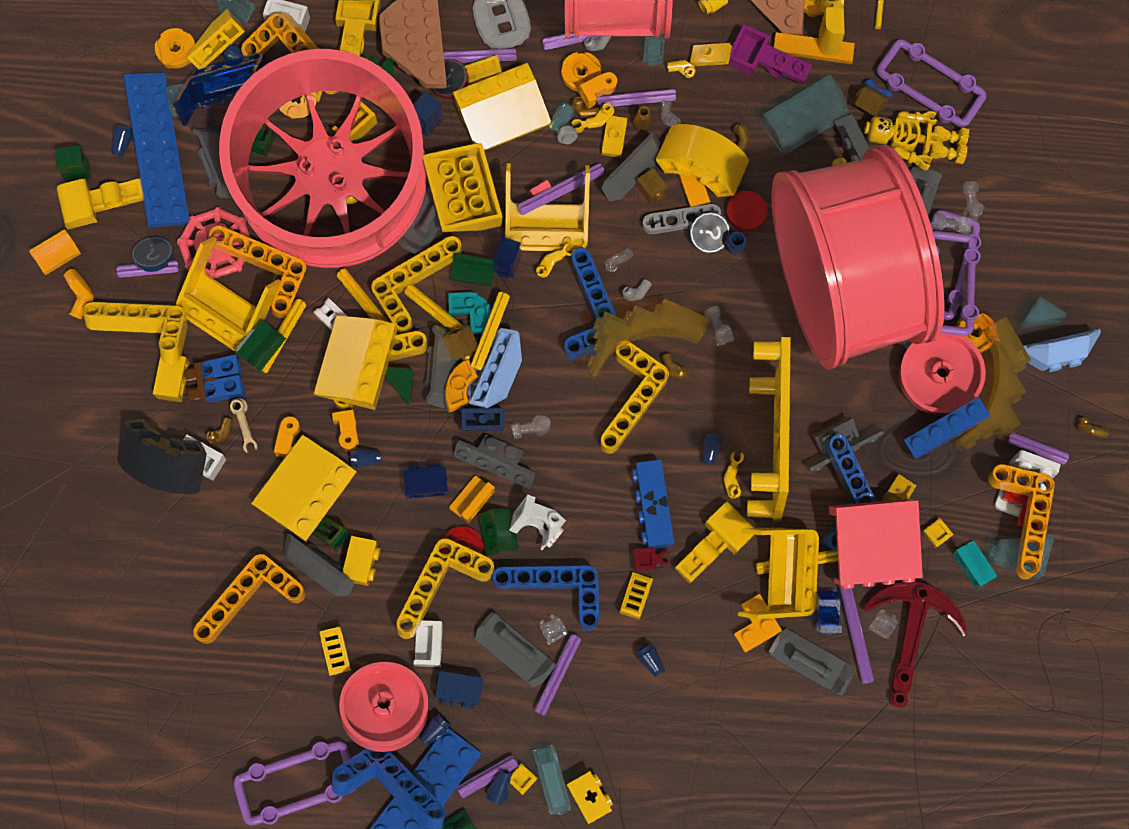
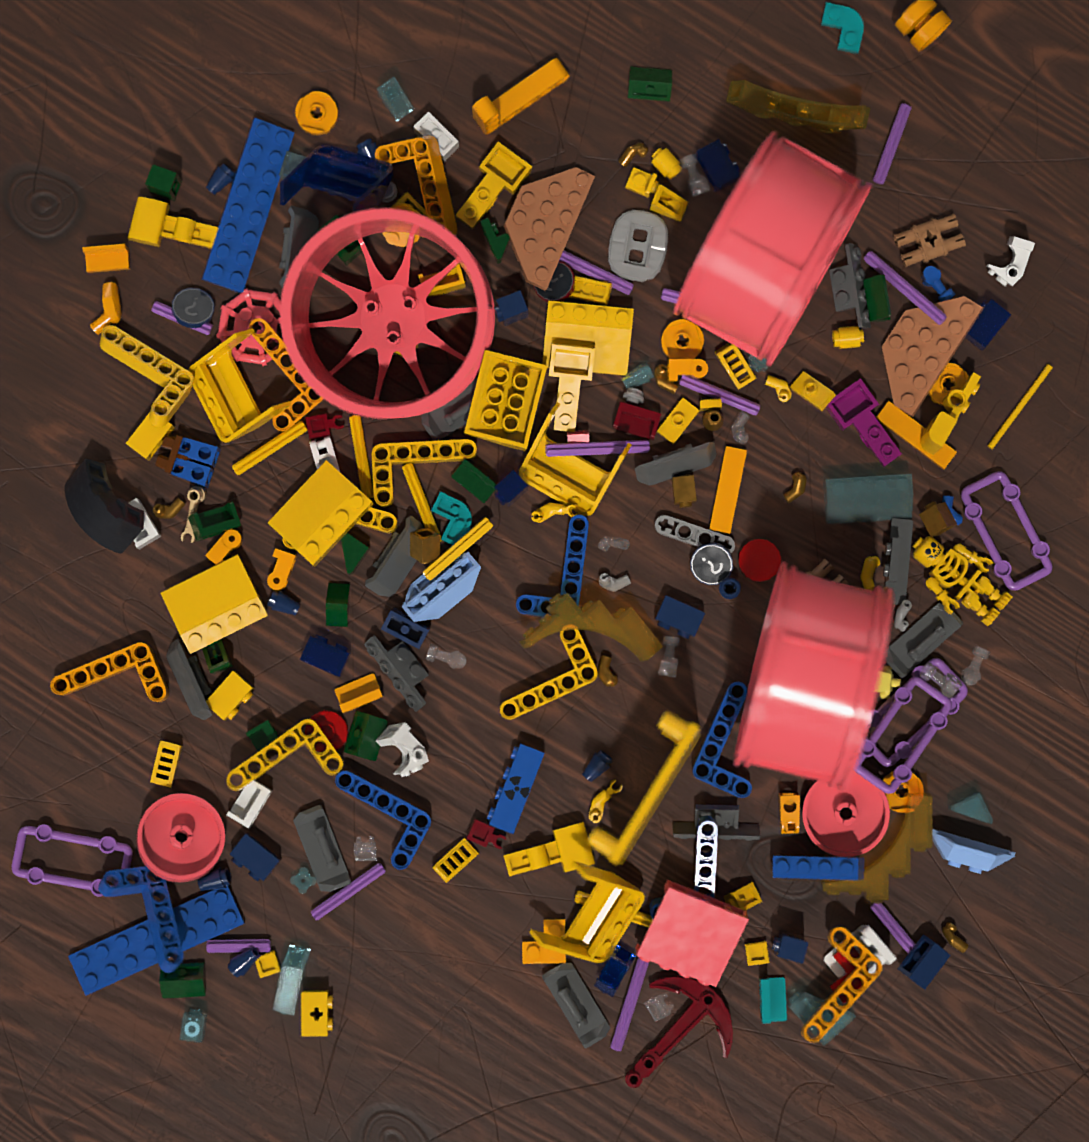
camera: 30 degrees right, 10 degrees up
(215, 39) = (360, 125): yellow slope -> none
(260, 345) = (244, 449): dark green panel -> none
(267, 419) = (214, 521): none -> dark green panel
(316, 294) = (320, 426): none -> dark red plate
(406, 578) = (262, 735): none -> dark green panel
(413, 434) = (337, 604): none -> dark green slope
(457, 386) = (401, 583): light orange tile -> none
(501, 133) = (571, 365): none -> yellow plate
(510, 680) = (303, 874): none -> clear light blue plate
(580, 152) = (637, 421): none -> dark red panel
(599, 120) = (670, 398): yellow arm -> none
(624, 70) = (724, 361): none -> yellow slope
(632, 108) = (710, 404): none -> yellow tile
(650, 659) = (435, 922): dark blue cone -> none
(703, 154) = (749, 487): yellow panel -> none
(708, 289) = (679, 617): none -> dark blue brick
(802, 374) = (719, 742): none -> blue beam
(895, 400) = (789, 812): none -> light orange leg
(965, 509) = (790, 947): none -> dark blue brick
(1081, 460) = (924, 962): none -> dark blue brick

